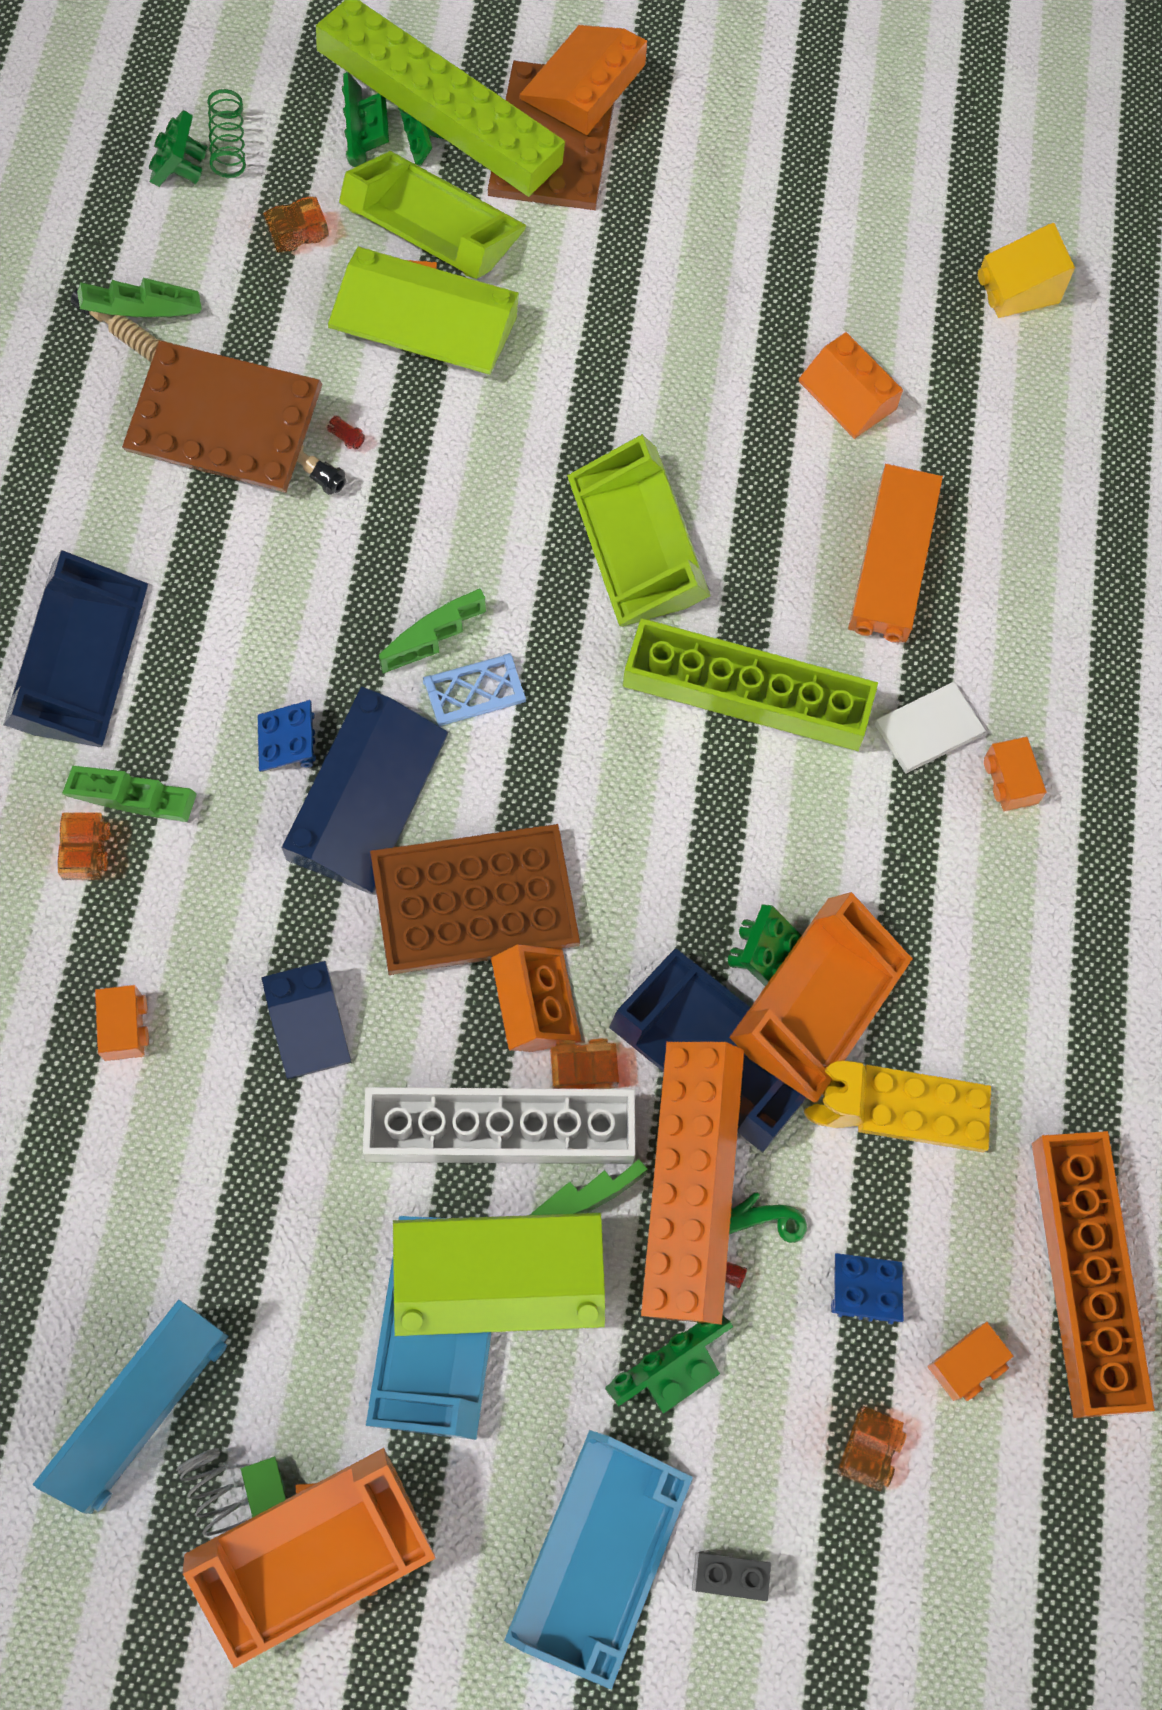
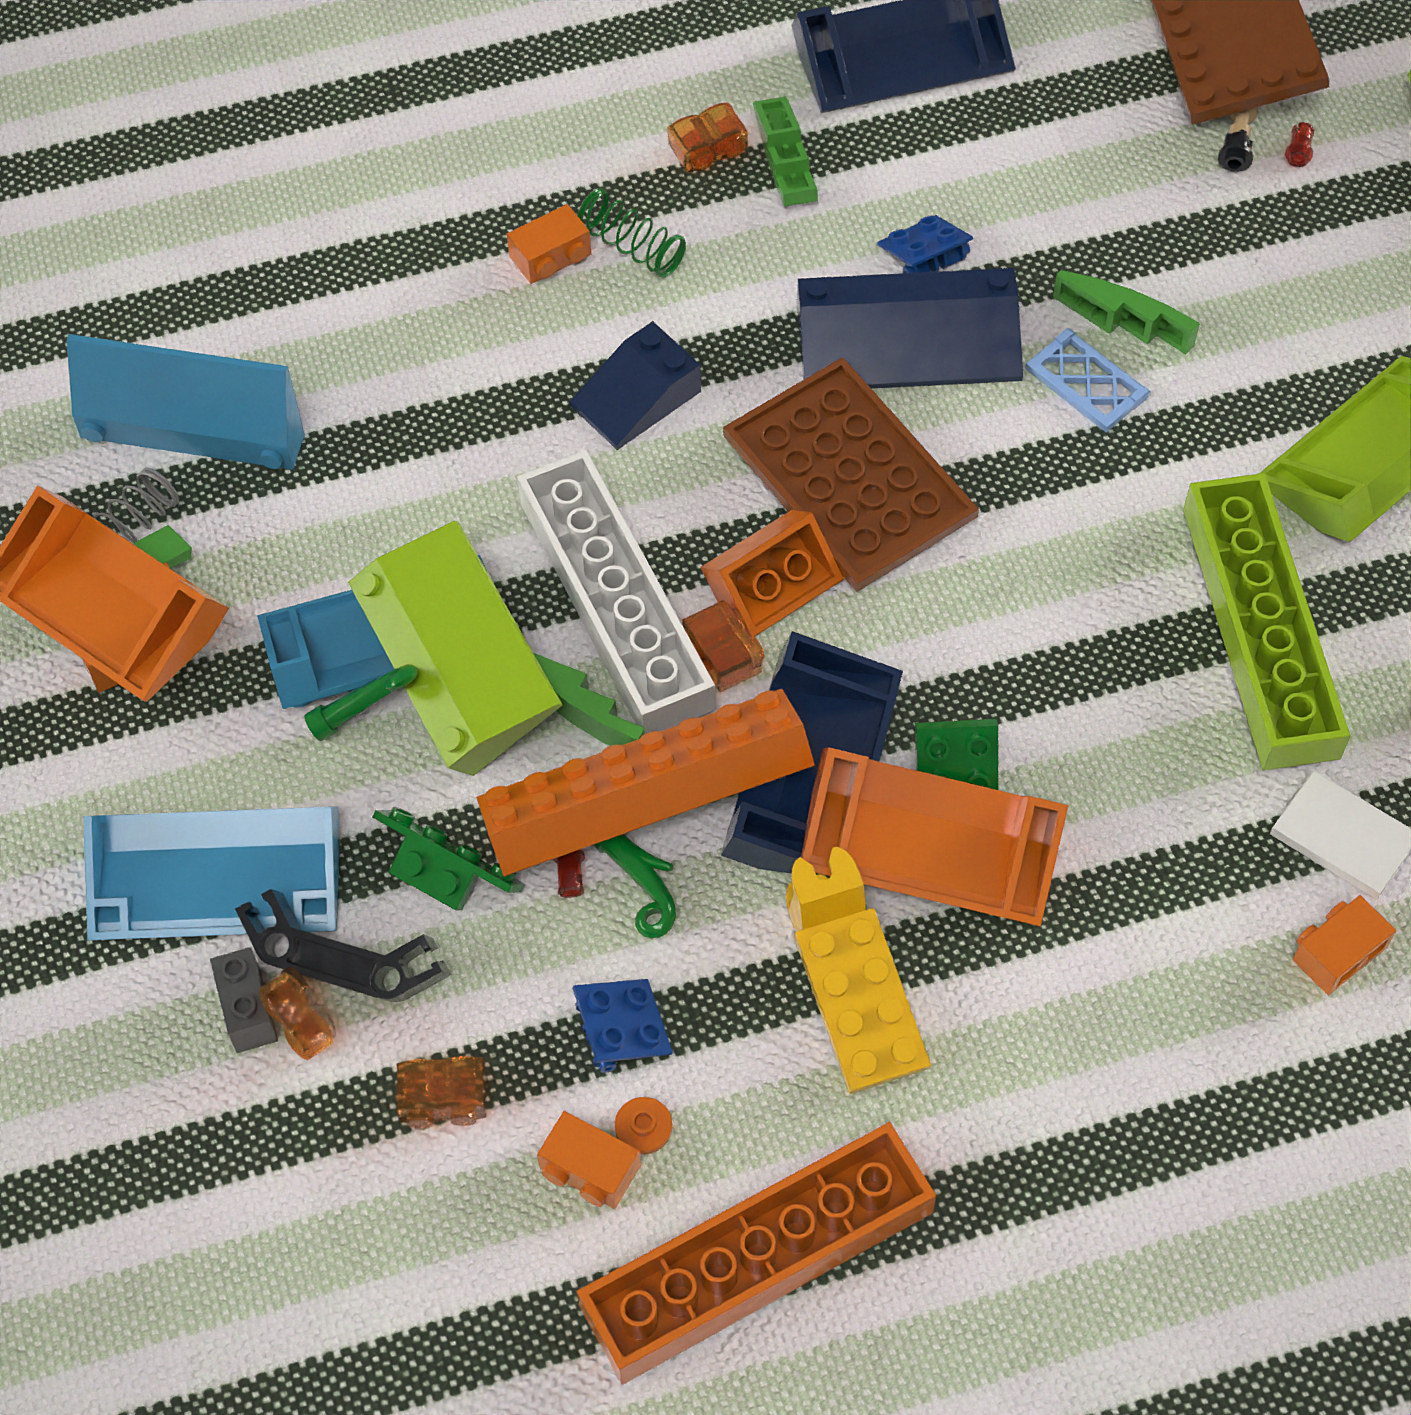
camera: 70 degrees right, 10 degrees down
(109, 973) = (662, 248): none -> green piece
(514, 1332) = (325, 720): none -> green plant
(730, 1486) = (337, 961): none -> black piece
(770, 1536) = (291, 1003): none -> clear orange brick
(950, 1309) = (644, 1124): none -> orange piece

